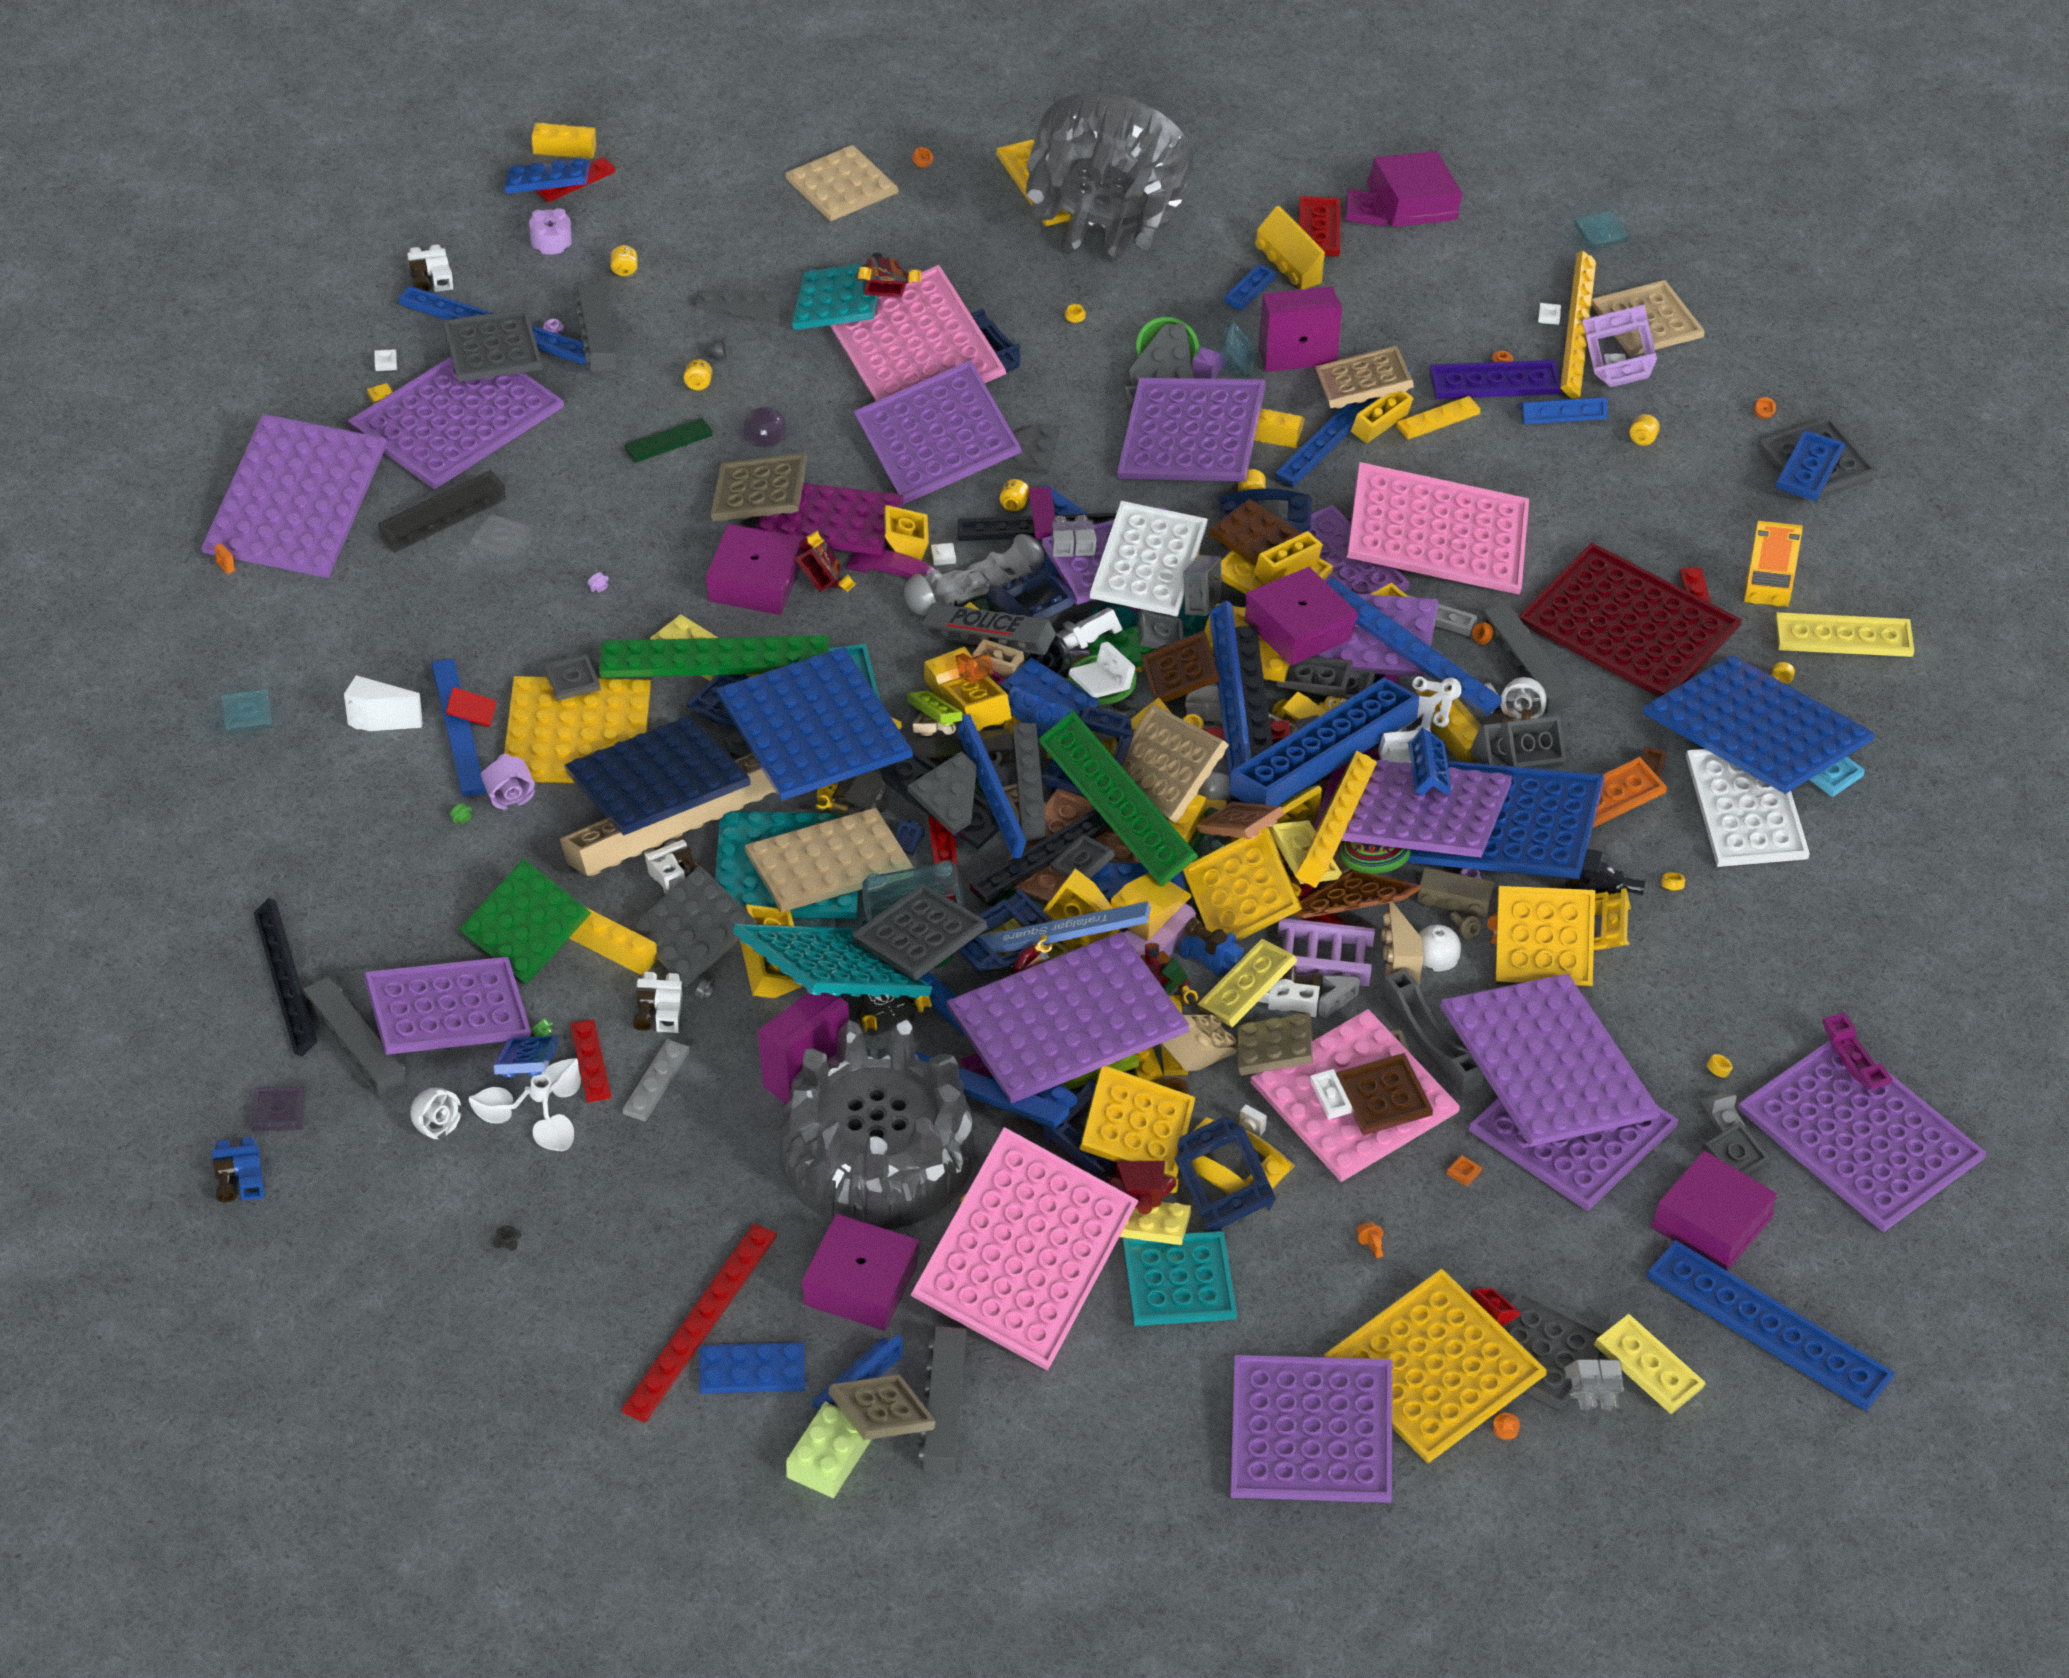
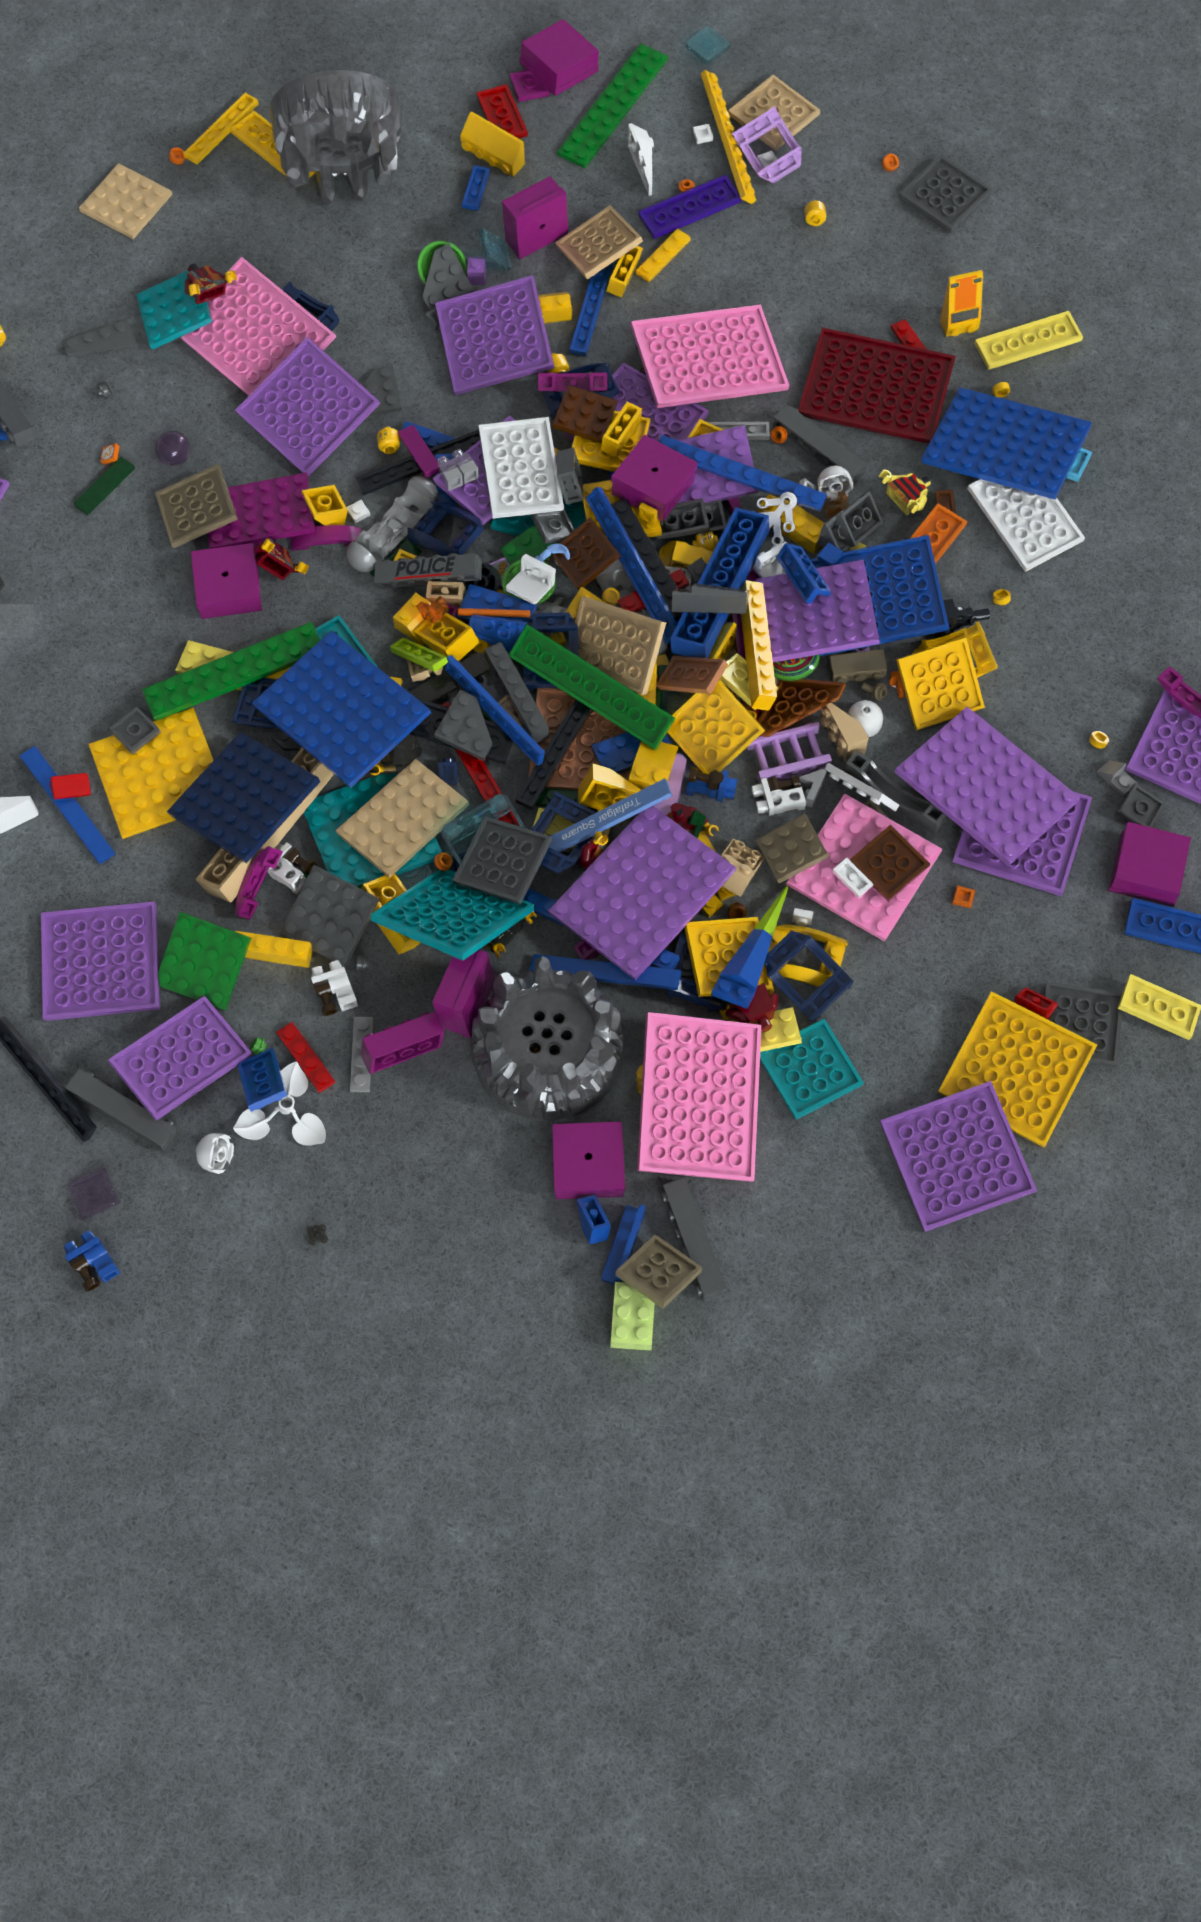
camera: 20 degrees left, 20 degrees up
(410, 886) = (100, 961): none -> medium lavender plate
(461, 813) = (107, 881): bright green plate -> none
(508, 781) = (131, 842): lavender brick -> none
(598, 582) = (112, 635): lavender plate -> none
(625, 861) = (253, 879): none -> magenta slope
(691, 411) = (109, 454): none -> orange tile
(697, 374) = (99, 419): yellow head -> none
(698, 1323) = (489, 1247): red plate -> none
(706, 1075) = (402, 1042): none -> magenta brick
(752, 1368) = (544, 1268): blue plate -> none
(834, 1335) = (593, 1219): none -> blue slope
(853, 919) = (443, 861): none -> orange plate
(983, 146) = (220, 128): none -> yellow plate
(1050, 694) = (494, 612): none -> orange bar
(1075, 313) = (357, 258): yellow plate -> none
(1084, 855) = (587, 746): dark grey plate -> none
(1089, 629) = (498, 544): white hips -> none
(1143, 1141) = (742, 973): none -> blue plate
(1146, 652) = (553, 548): none -> light blue piece
(1236, 494) = (559, 382): none -> magenta slope
(1247, 982) = (749, 804): light yellow plate -> none
(1275, 649) = (647, 513): none -> yellow tile
(1297, 745) = (710, 599): none -> dark grey slope
(1371, 1235) = (925, 977): orange piece -> none
(1393, 1011) = (862, 788): none -> white wing
(1456, 256) = (612, 106): none -> green plate
(1466, 309) = (641, 150): none -> white wedge
(1476, 760) = (830, 554): none -> blue tile
(1506, 1426) = (1083, 1095): orange tile -> none
(1564, 410) = (750, 216): blue fence -> none
(1596, 1380) = (1132, 1036): clear hips -> none
(1609, 736) = (906, 490): none -> torso
(1810, 465) = (947, 203): blue plate -> none

